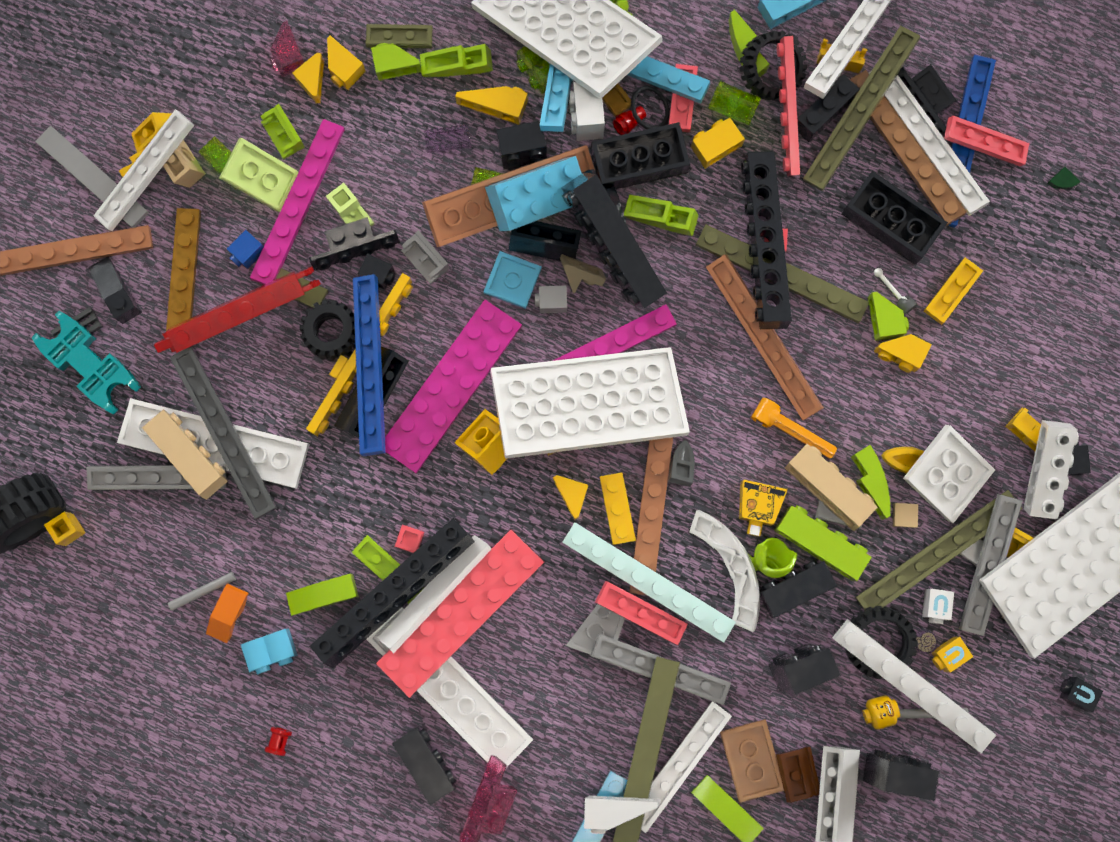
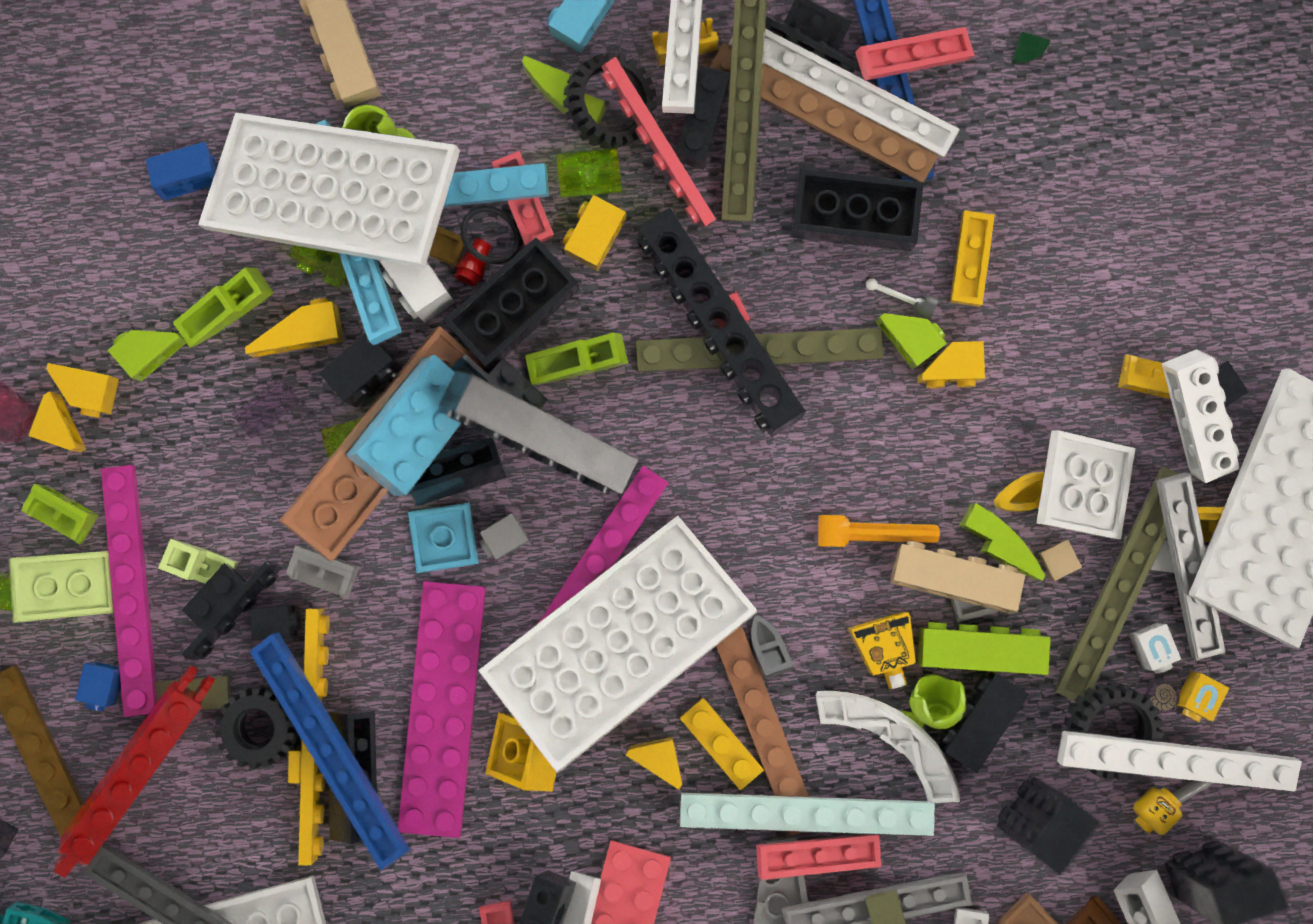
camera: 30 degrees left, 5 degrees up
(401, 35) = (134, 312): olive tile -> none
(578, 271) = (517, 485): dark tan slope -> none
(765, 340) = (787, 445): nougat plate -> none

